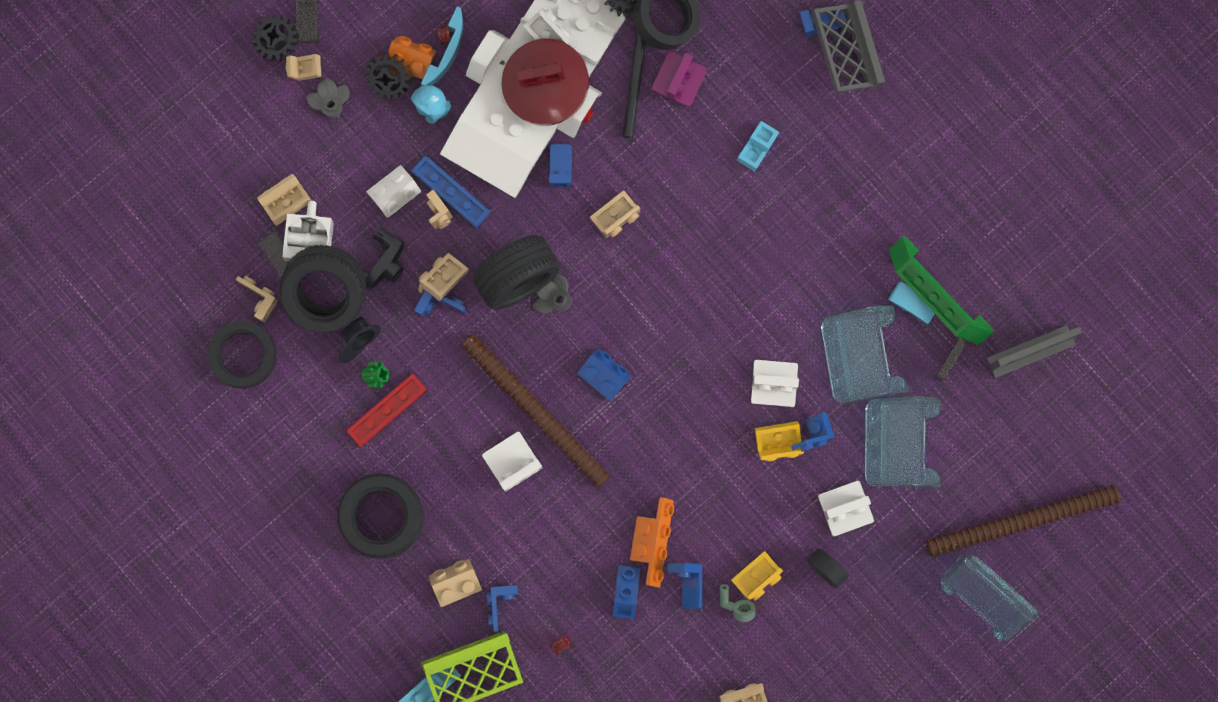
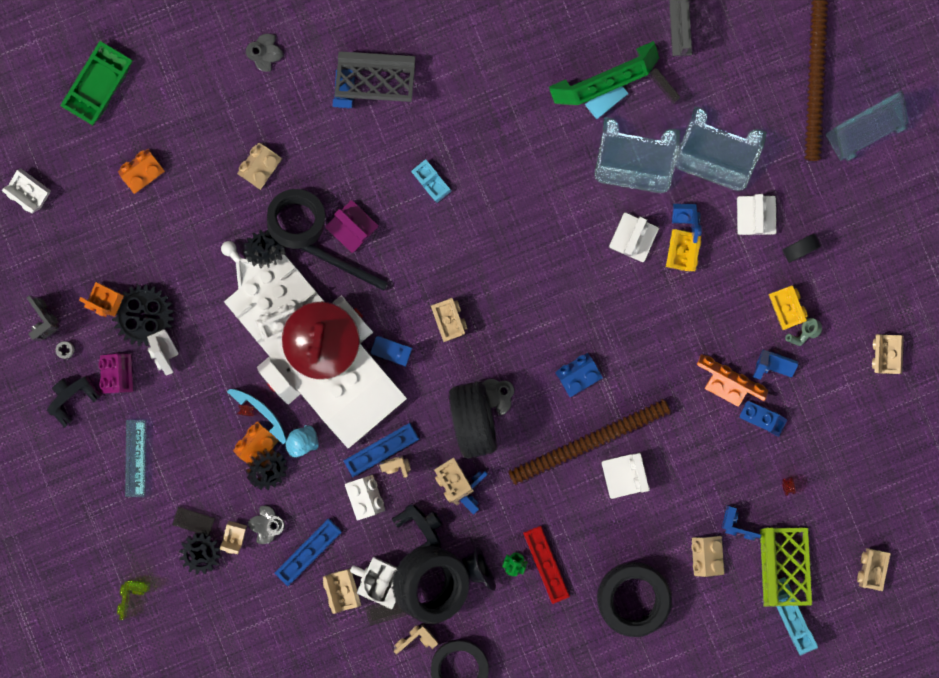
camera: 65 degrees left, 5 degrees up
(314, 151) = (308, 552): none -> blue tile

